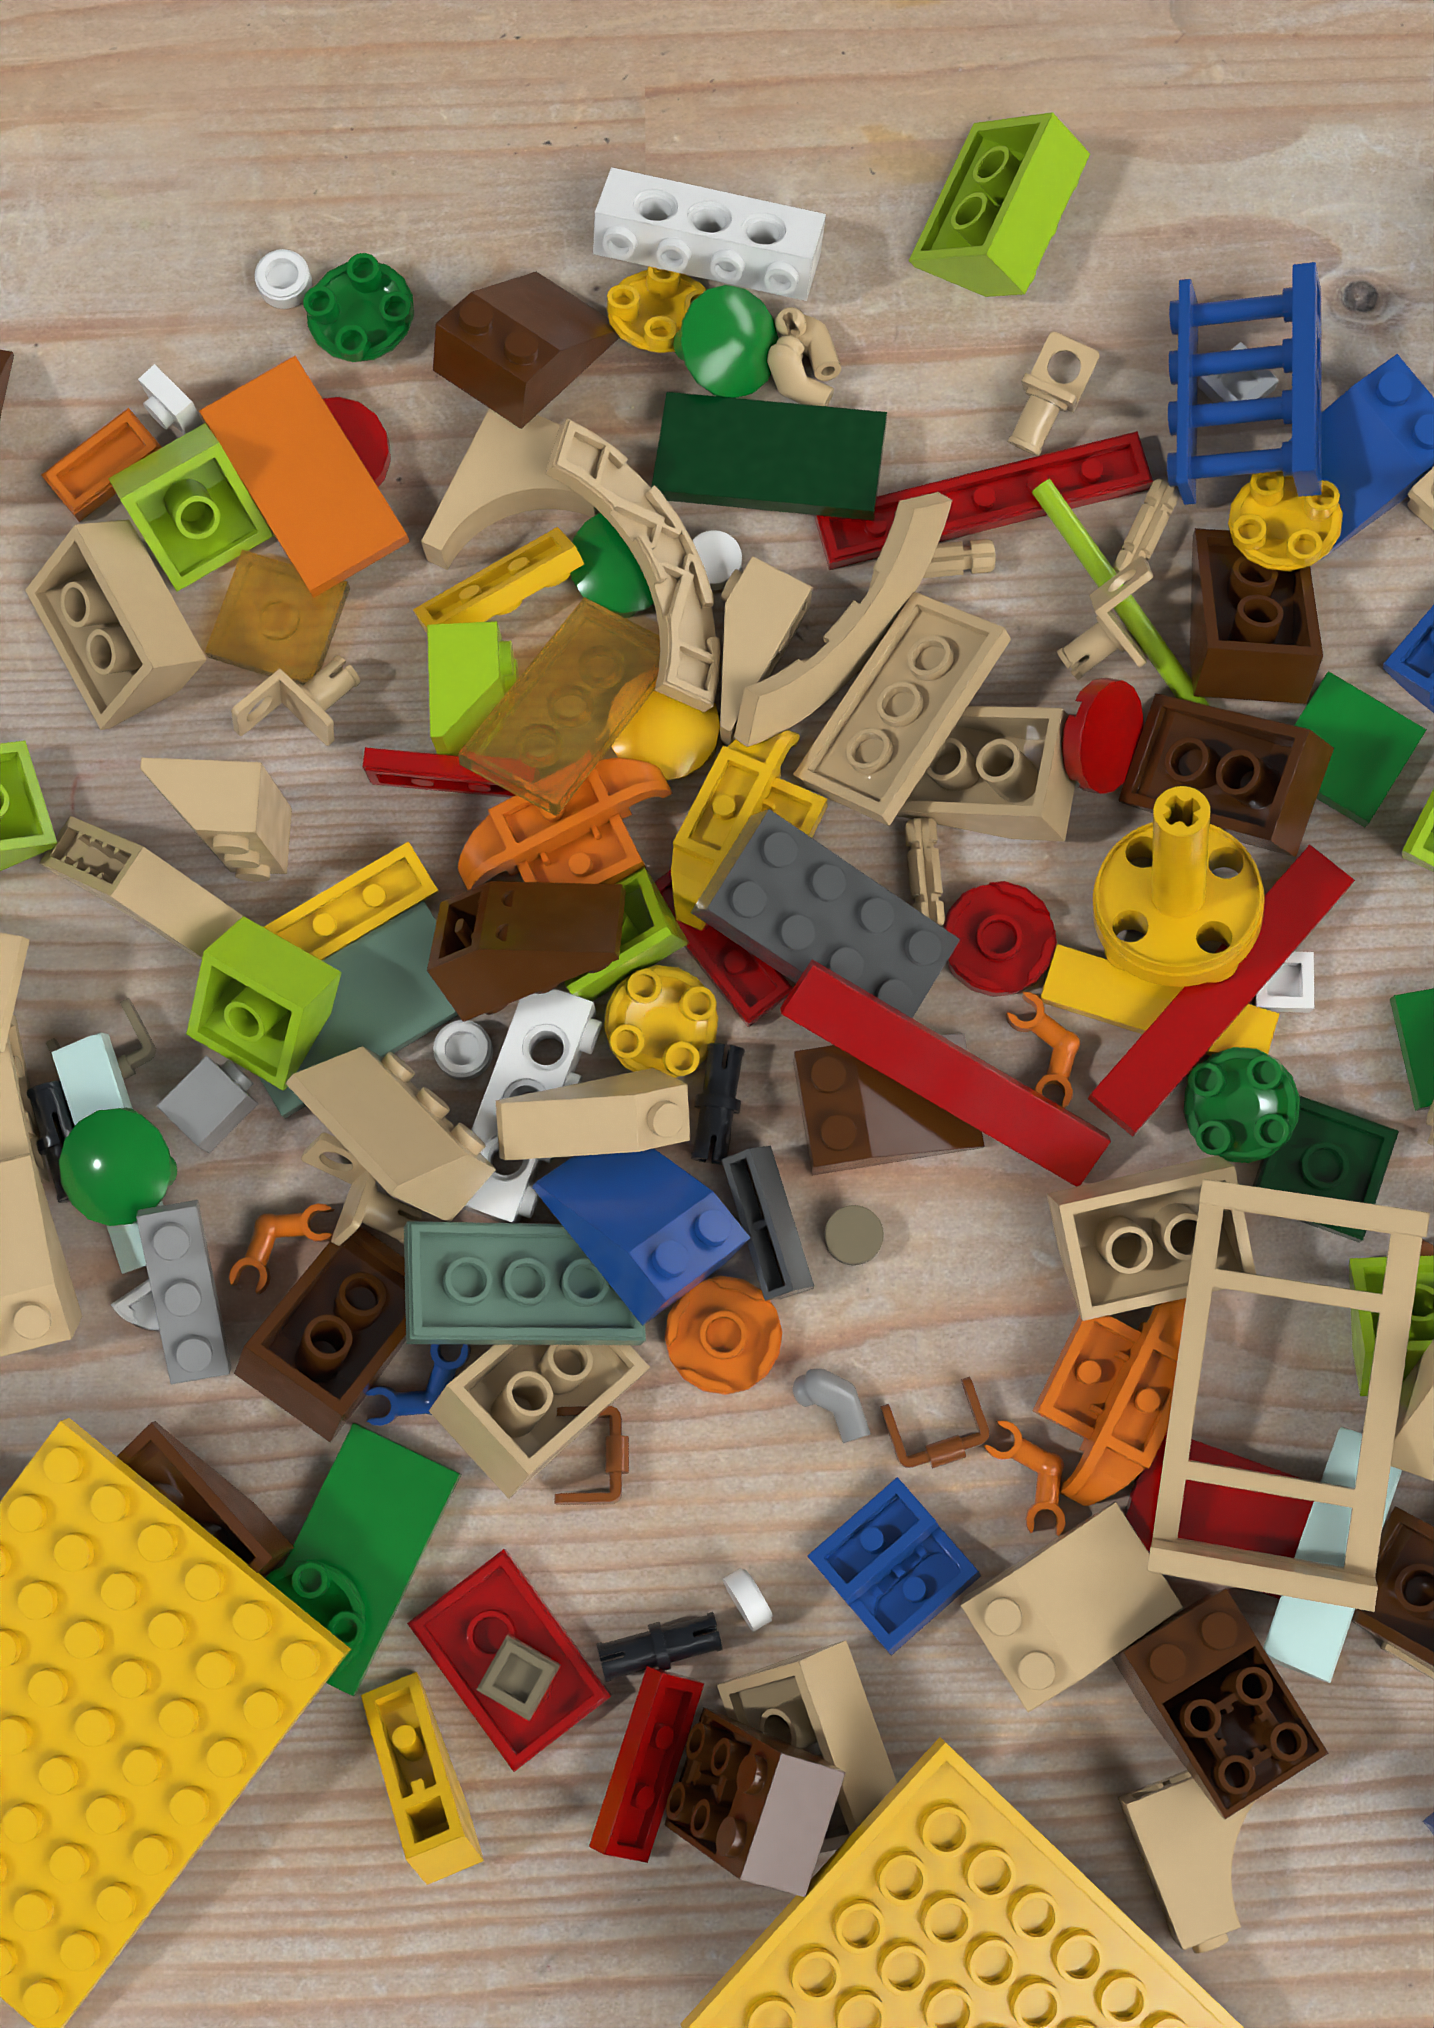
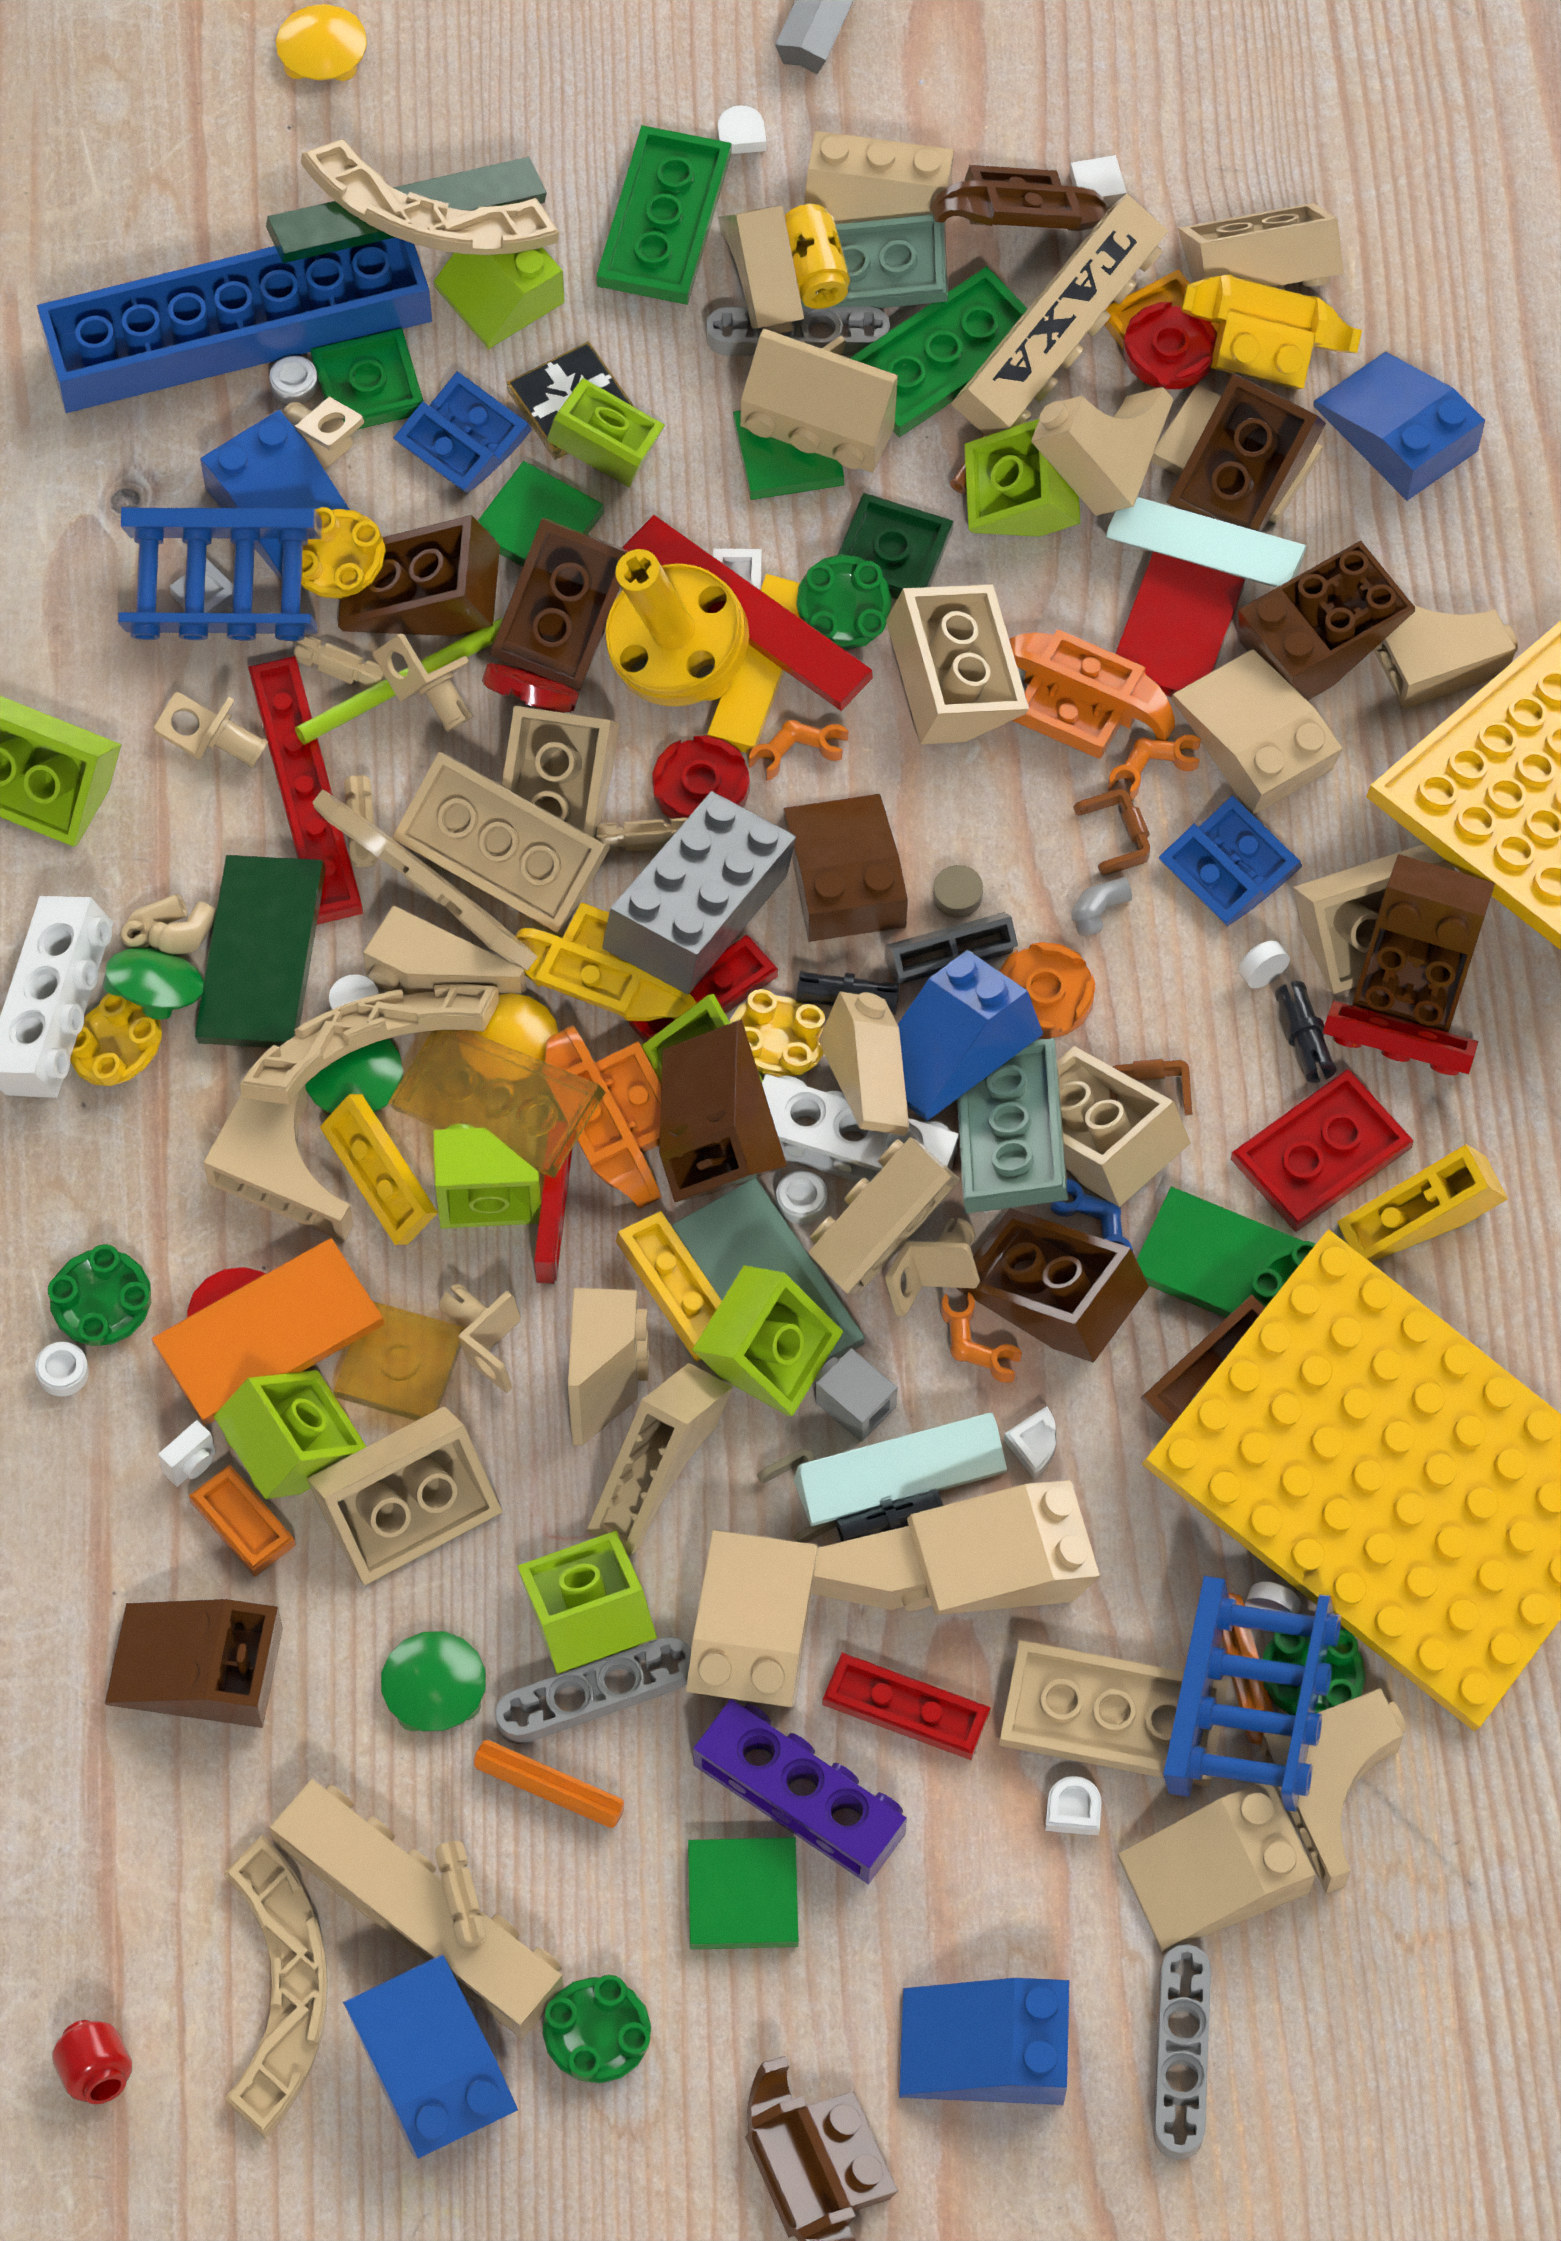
camera: 95 degrees left, 15 degrees down
(115, 1166) = (918, 1449): green dish -> none
(184, 1291) = (1024, 1398): light grey plate -> none
(518, 1677) = (1336, 1132): dark tan tile -> none
(519, 344) = (156, 1140): reddish brown slope -> none
(944, 1073) = (826, 803): red tile -> none
(1325, 1583) = (1228, 520): tan piece -> none

